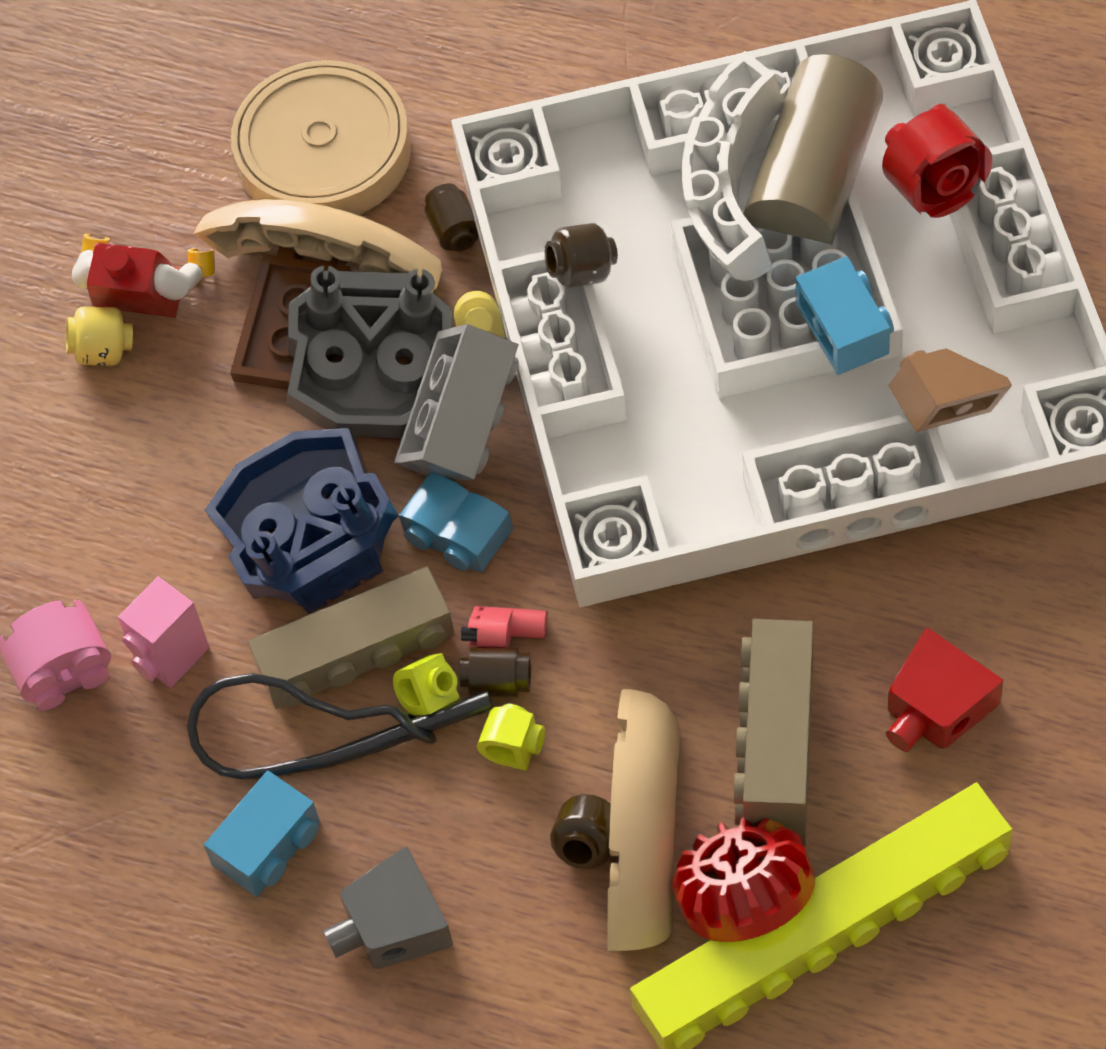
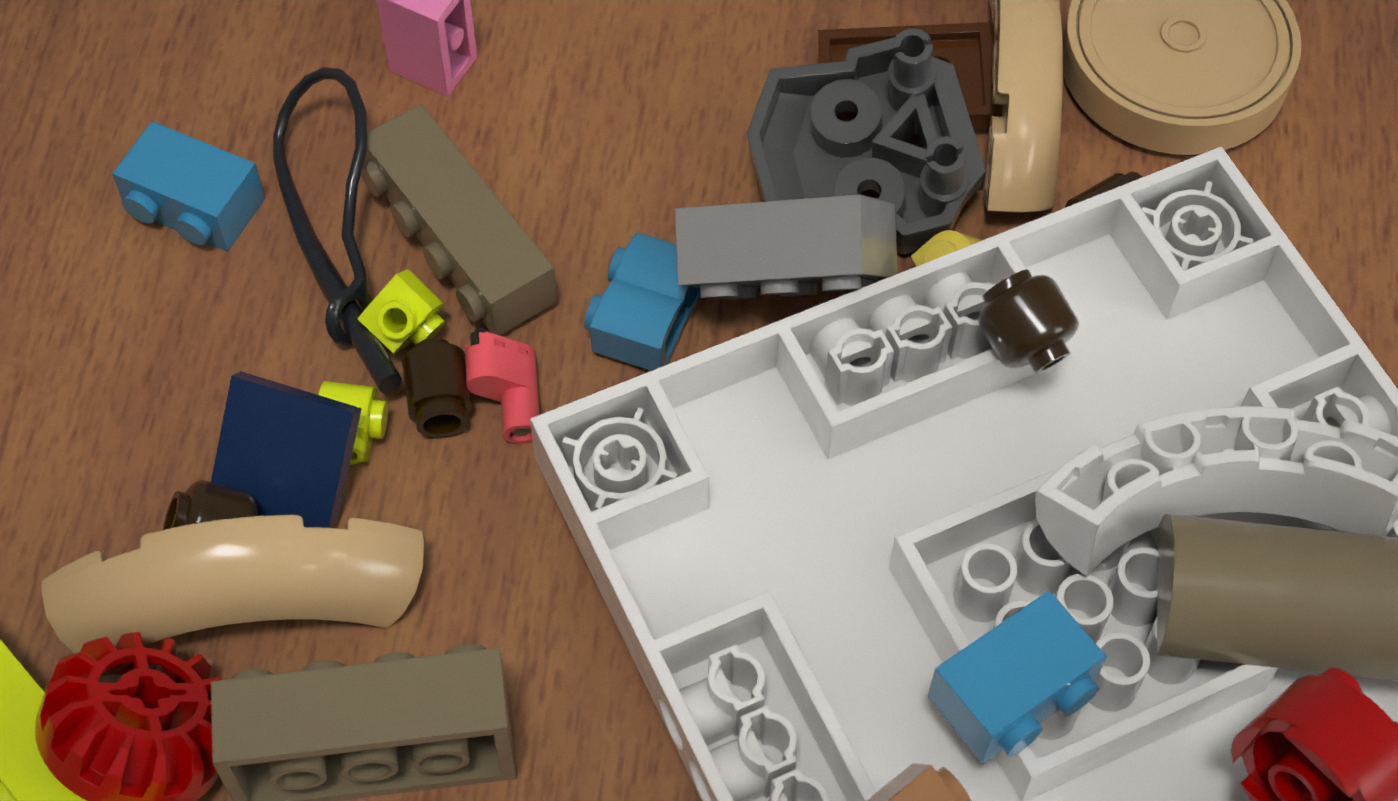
camera: 70 degrees right, 0 degrees up
(317, 541) = (611, 134): dark blue brick -> none
(390, 915) = (93, 337): dark grey torso -> none
(536, 771) = (286, 449): none -> dark blue tile

